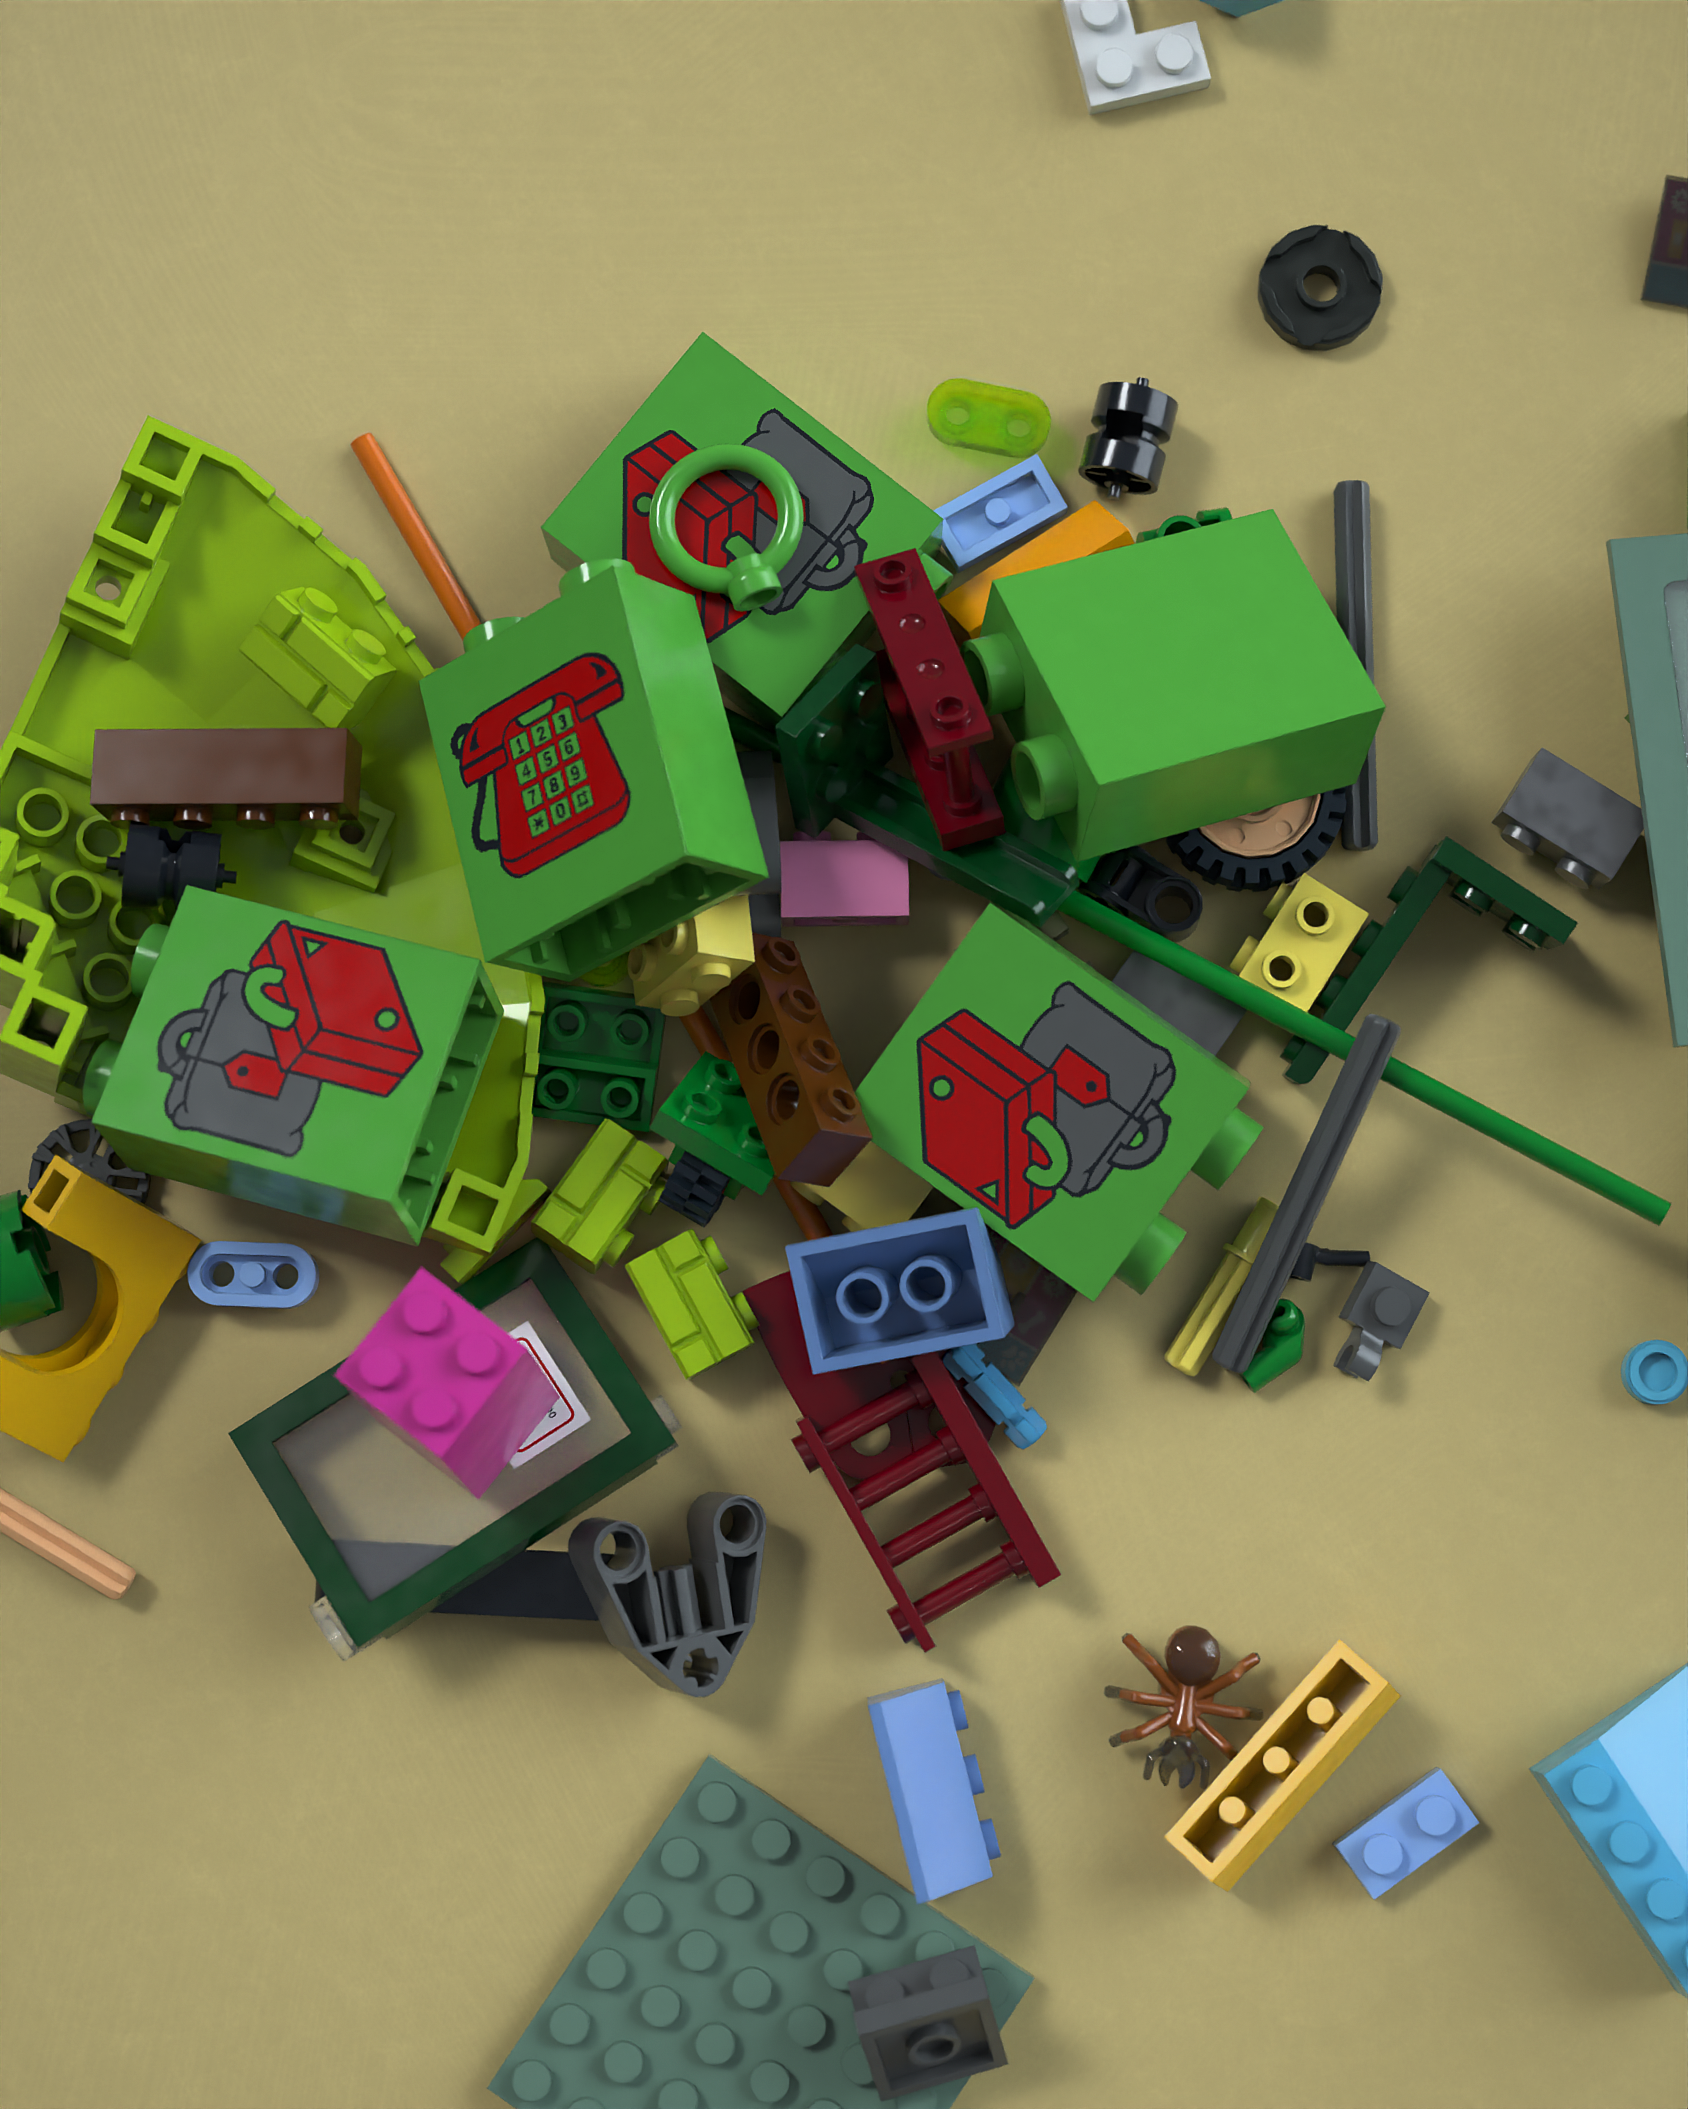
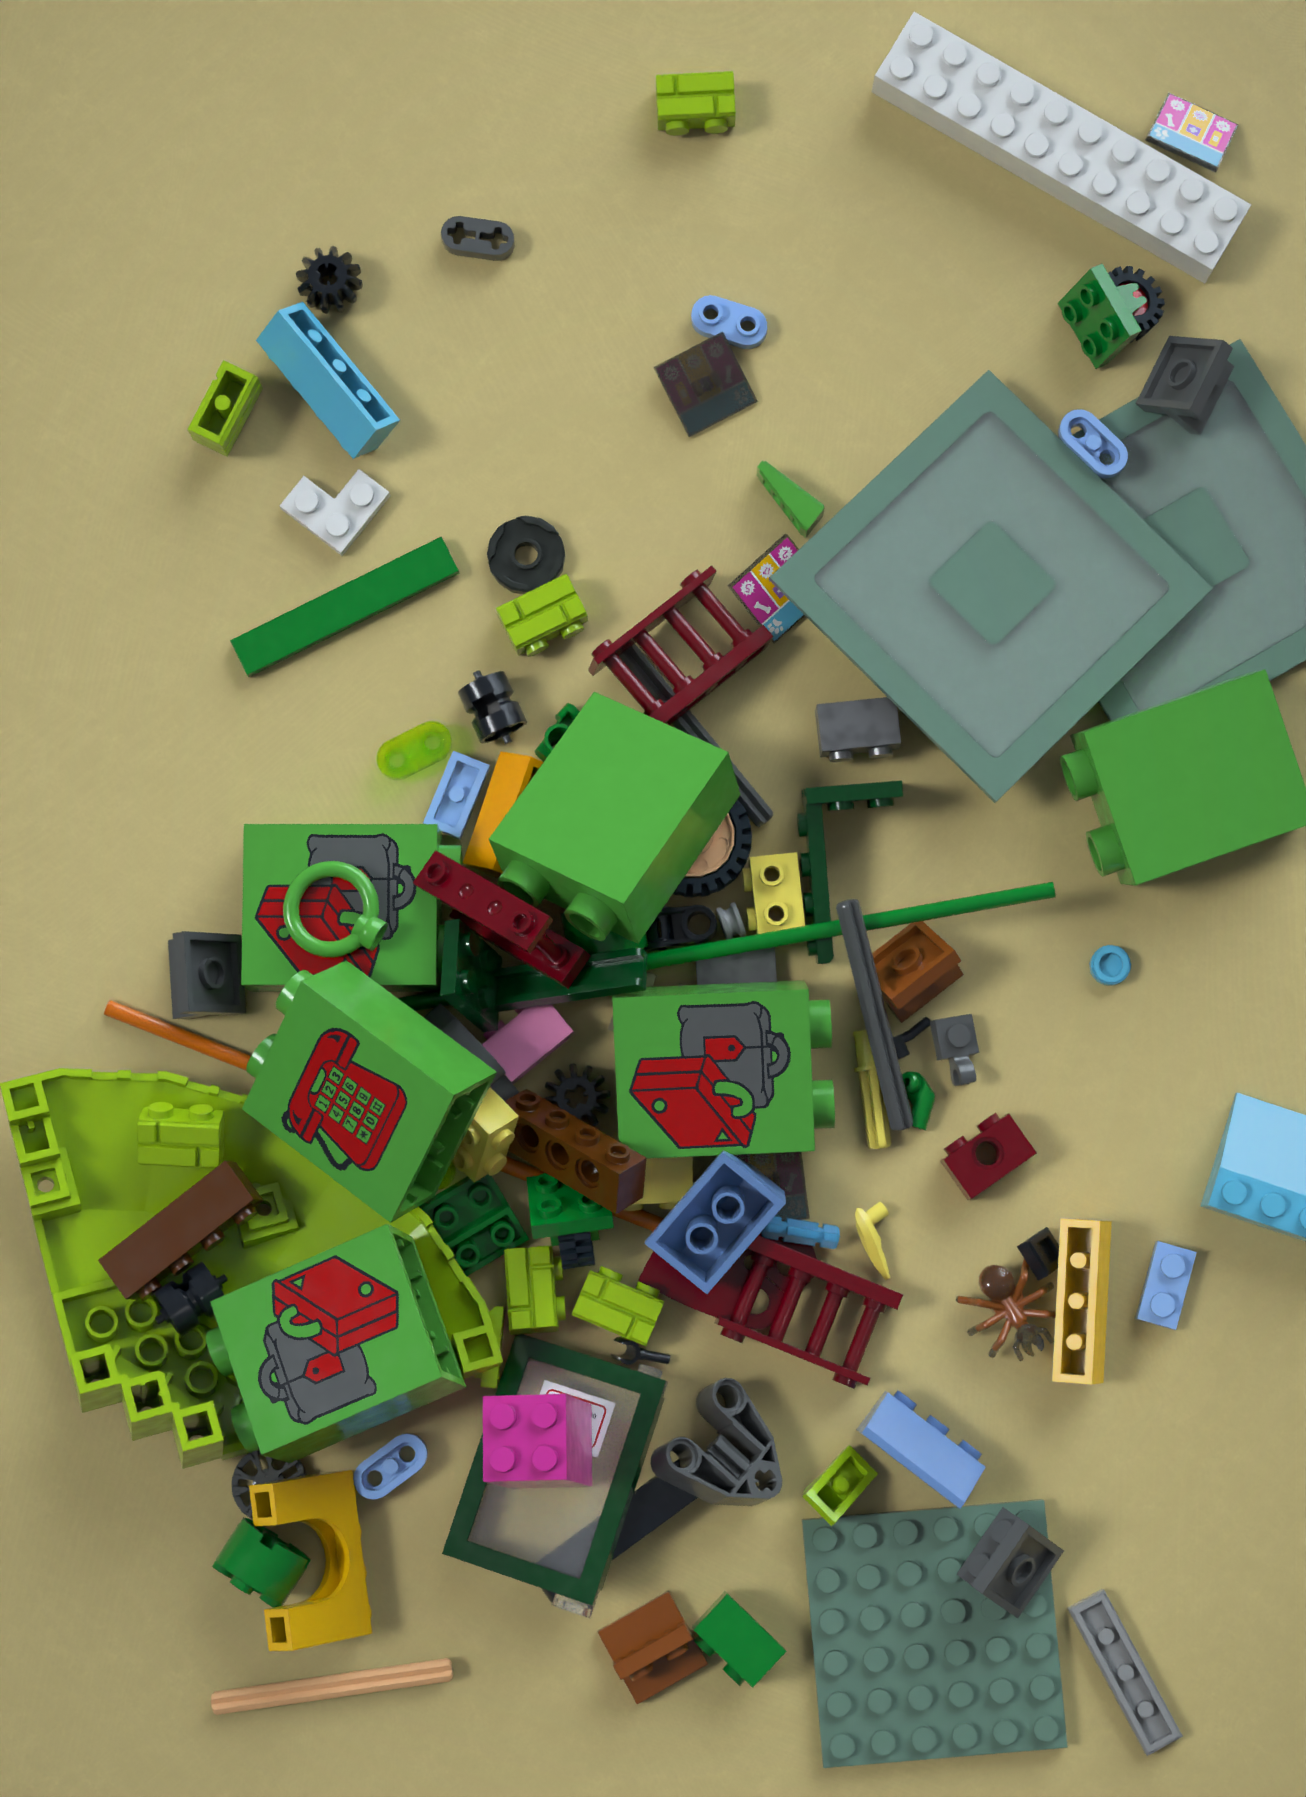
camera: 40 degrees left, 0 degrees up
(395, 1762) = (652, 1647): none -> dark orange bracket
(506, 1840) = (737, 1640): none -> green brick
(509, 490) = (206, 974): none -> dark grey bracket
(667, 1378) = (636, 1353): none -> black hand
(789, 1749) = (839, 1485): none -> lime slope
(855, 982) = (571, 1084): none -> black gear
(1043, 177) = (344, 606): none -> green tile
(1077, 1468) = (869, 1237): none -> light yellow bar
(1216, 936) = (731, 921): none -> light grey bush
(1278, 1664) = (1041, 1253): none -> black tile
(1281, 375) = (543, 615): none -> lime brick
(1347, 1492) = (1011, 1151): none -> dark red brick
(1402, 1179) = (914, 969): none -> dark orange bracket
(1450, 607) = (716, 666): none -> dark red fence
(1577, 565) = (761, 597): none -> piece

